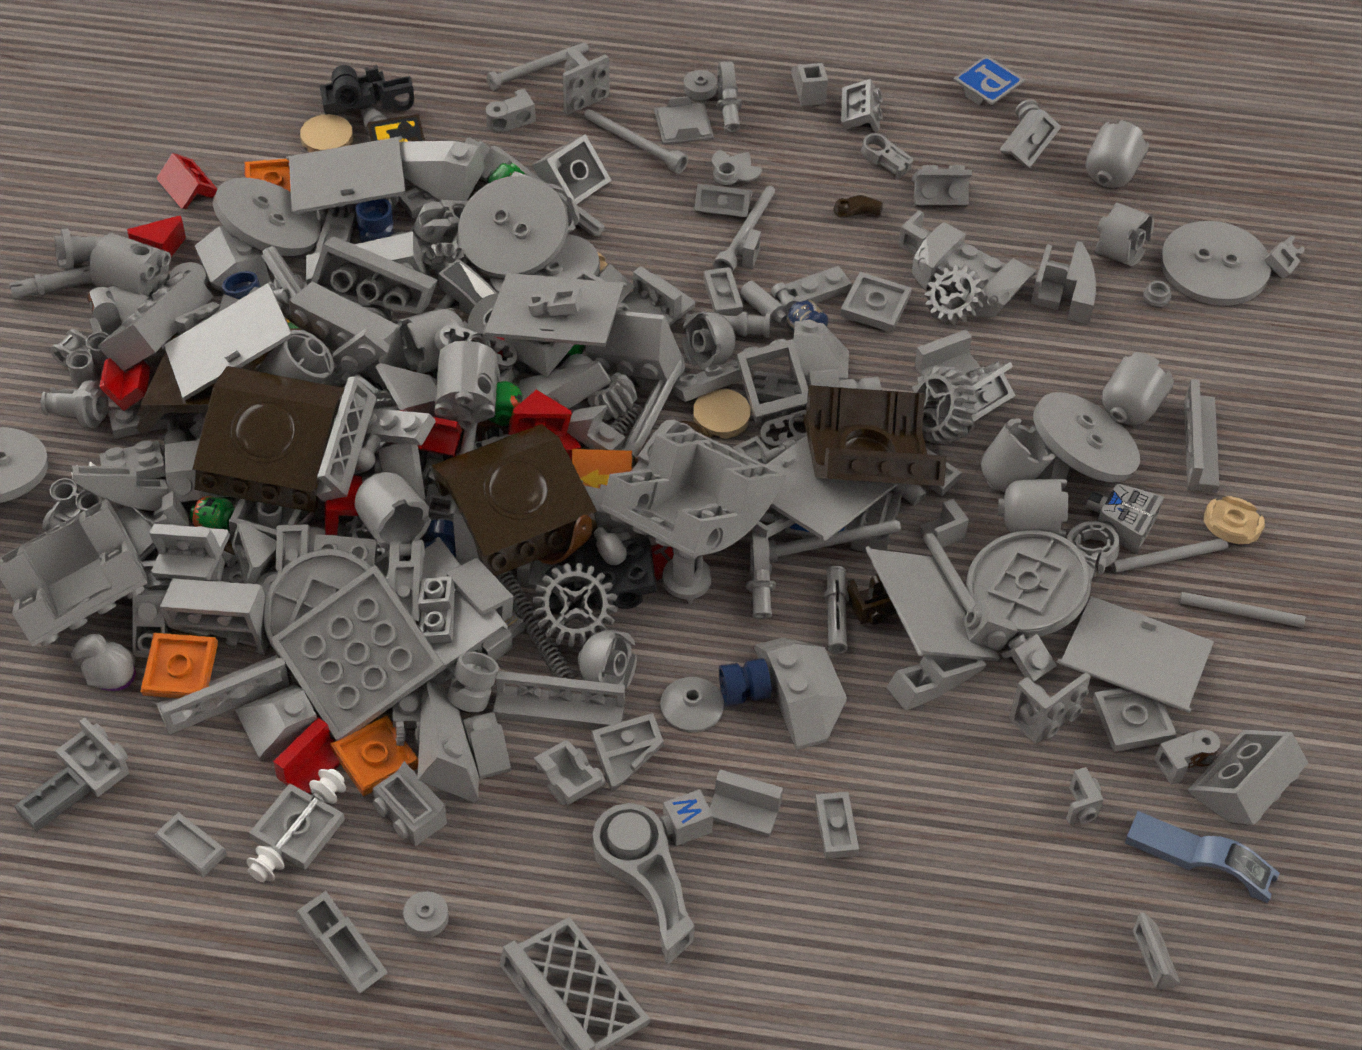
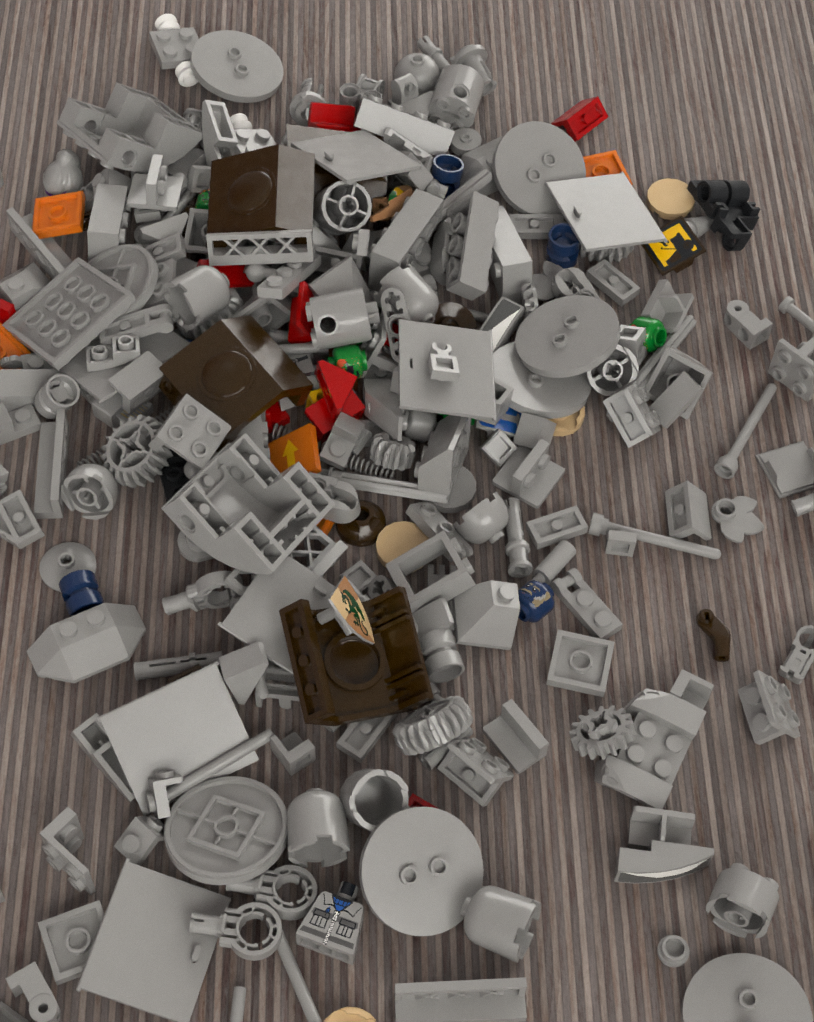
camera: 80 degrees right, 5 degrees up
(64, 305) = (422, 68): none -> light grey cylinder
(162, 234) = (504, 113): red slope -> none
(442, 167) = (635, 278): light grey wedge -> none
(585, 532) = (191, 432): none -> light grey bracket
(597, 175) = (676, 399): none -> light grey tile
(612, 204) = (633, 414): none -> light grey bracket
(830, 438) = (348, 612): none -> shield
(870, 529) = (244, 669): none -> light grey slope
(1130, 585) = (237, 919): none -> light grey pin

